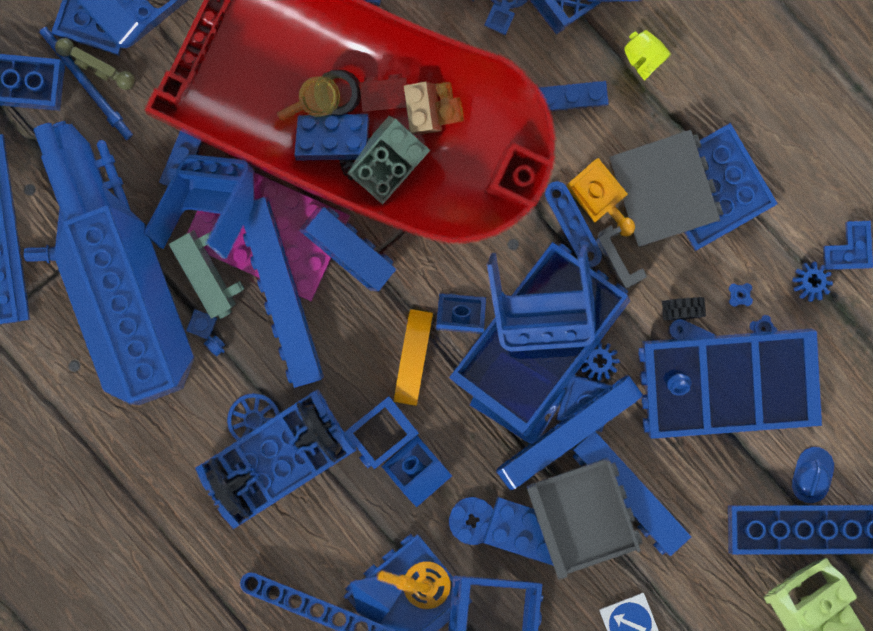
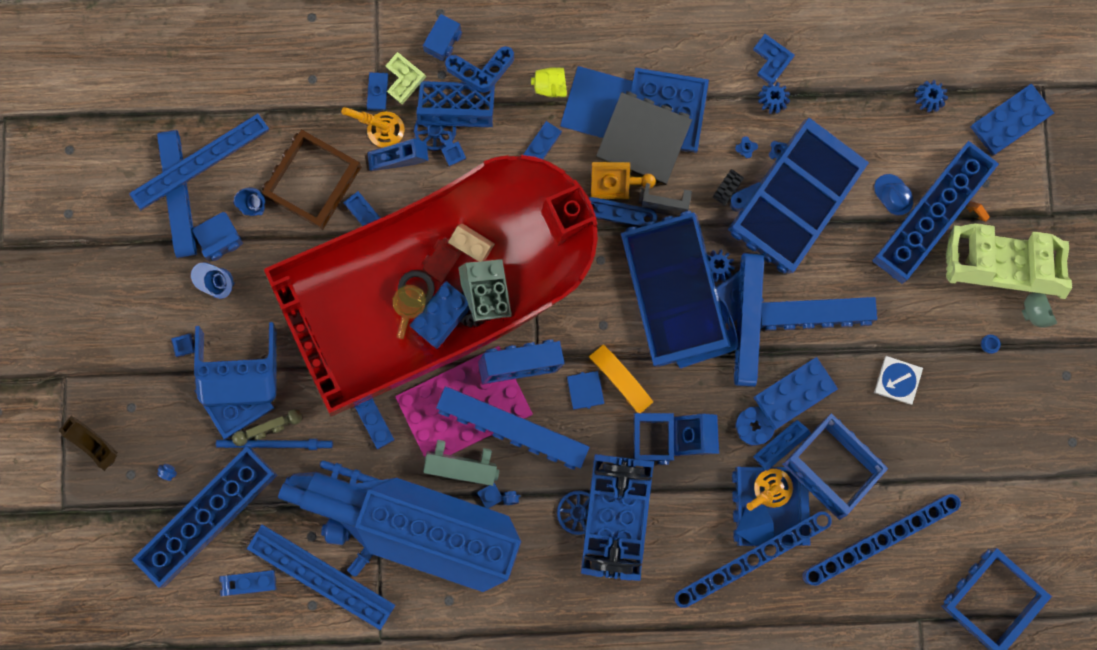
camera: 50 degrees left, 5 degrees down
(47, 209) = (335, 532): none -> blue head
(207, 186) = (409, 416): blue windscreen -> none
(375, 332) = (585, 390): none -> blue piece
(449, 108) = (485, 227): clear yellow plate -> none
(461, 313) = (618, 326): blue slope -> none
(474, 560) = (782, 445): none -> blue plate
(544, 318) = (667, 273): blue windscreen -> none
(584, 517) = (810, 352): dark grey panel -> none
(664, 109) = (593, 101): none -> blue sticker
(679, 384) = (775, 226): blue plate -> none
(863, 576) = (978, 209): none -> orange tile

